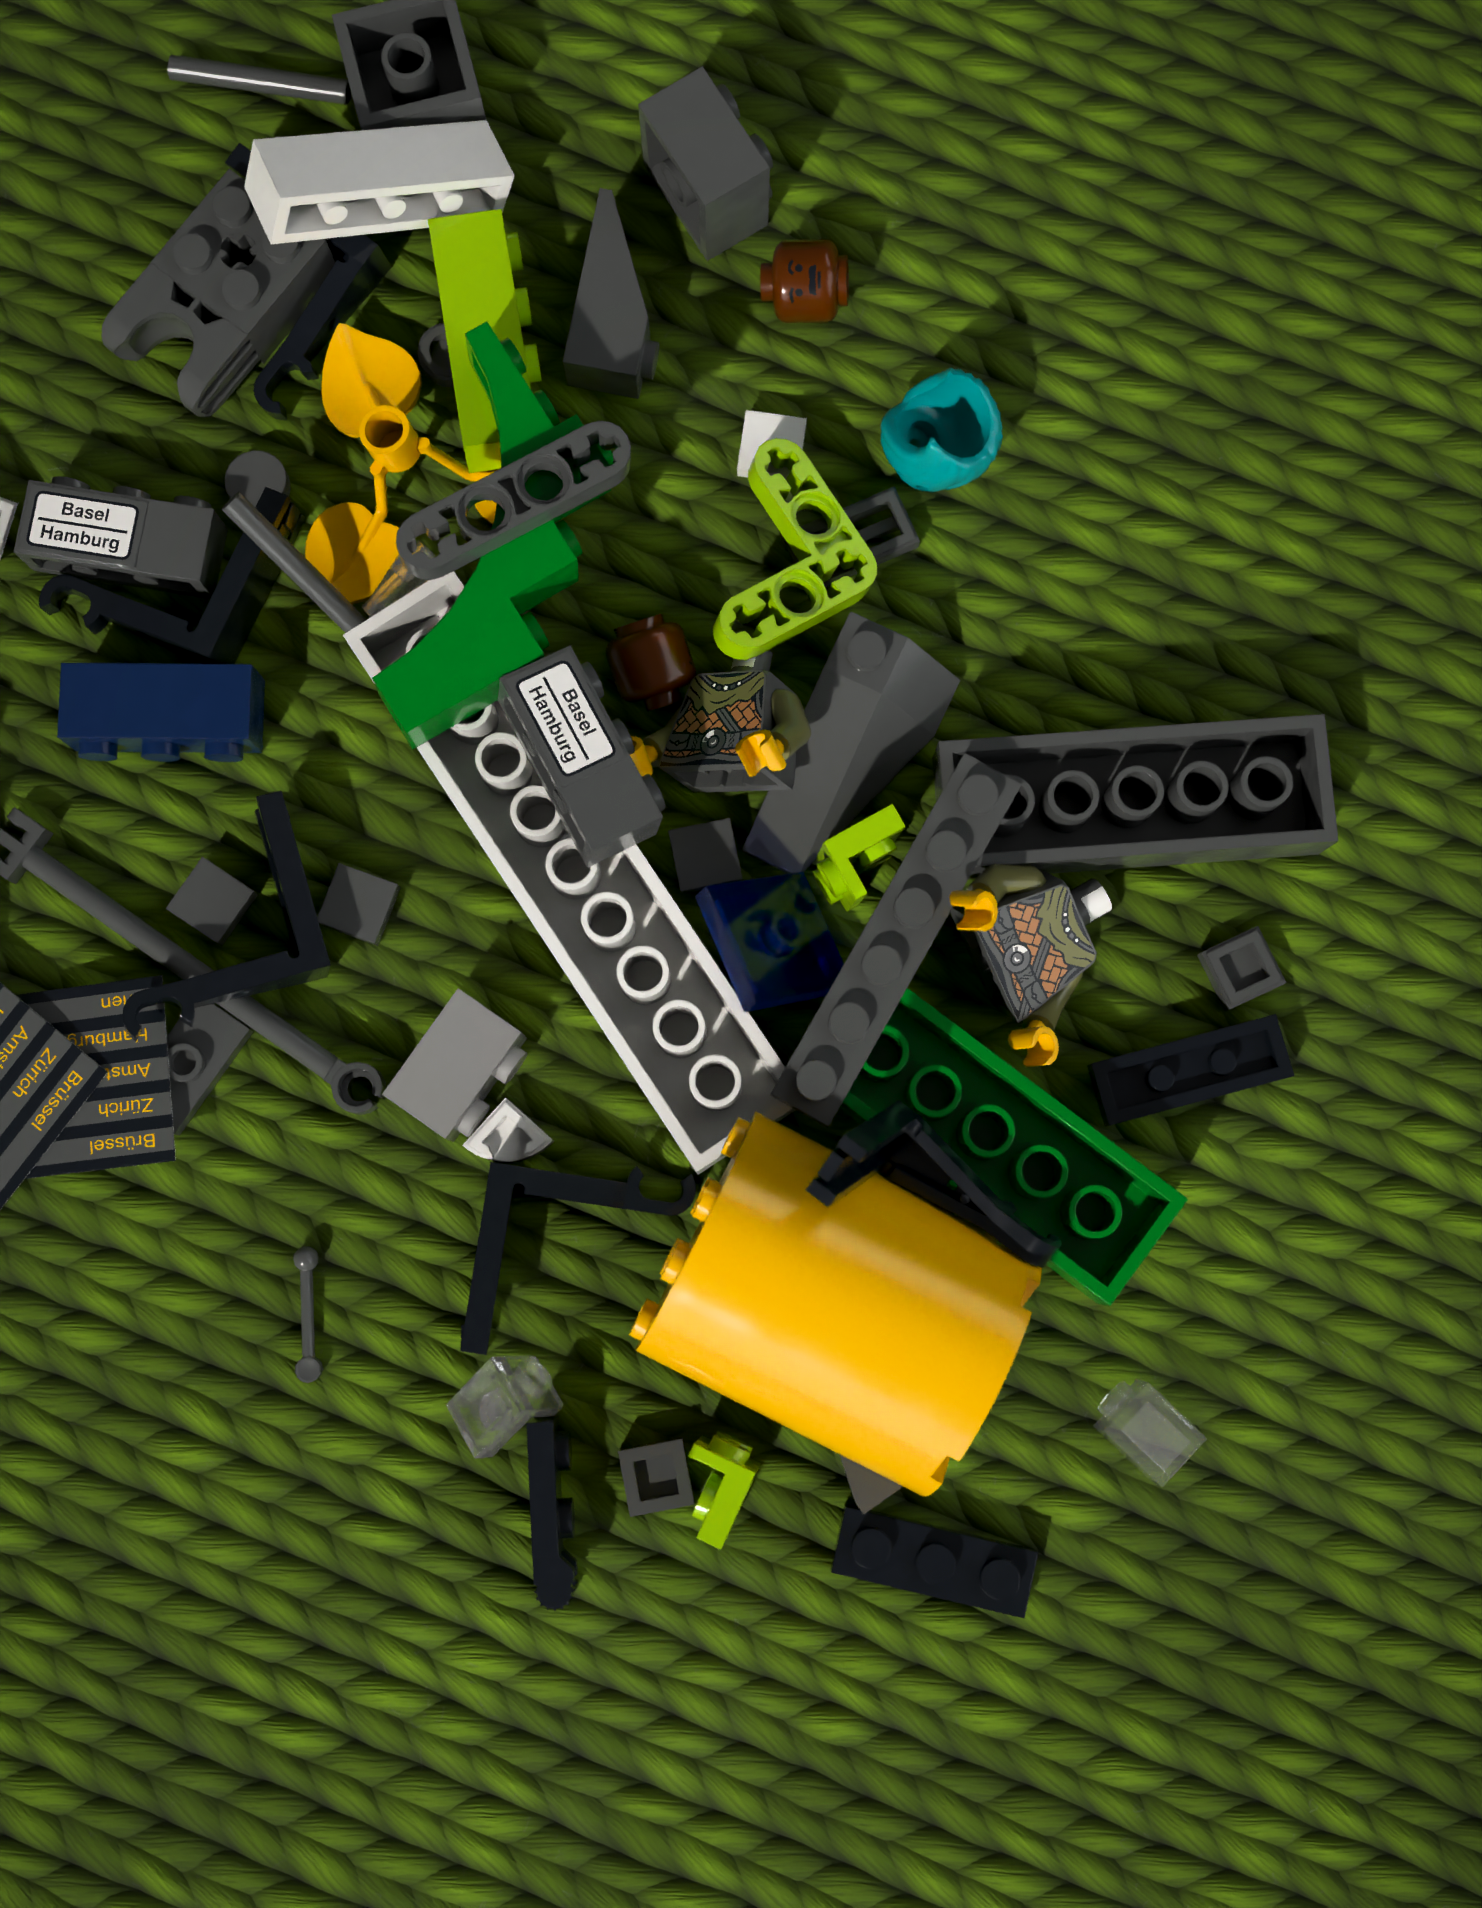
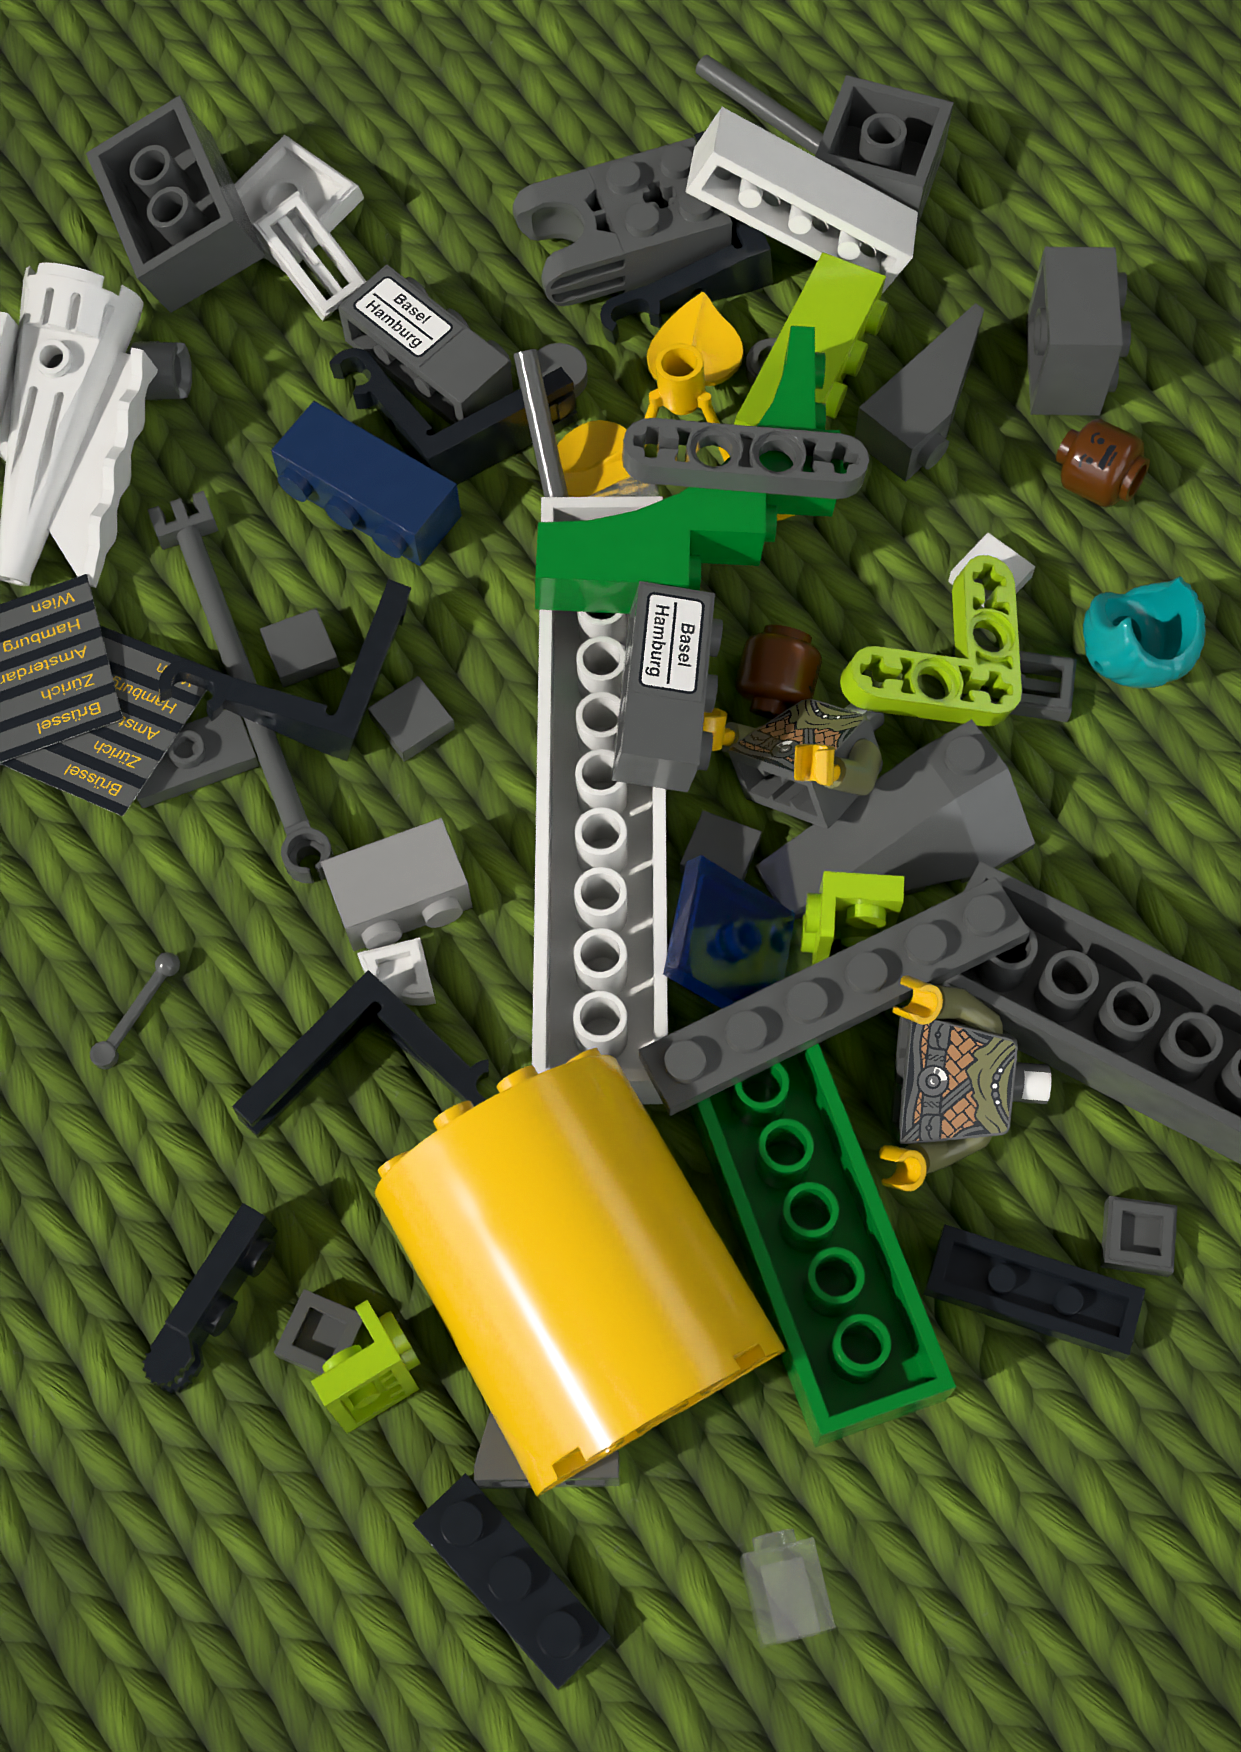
camera: 35 degrees right, 15 degrees down
(501, 1401) = (235, 1174): clear bracket -> none
(921, 1161) = (727, 1177): black hinge -> none

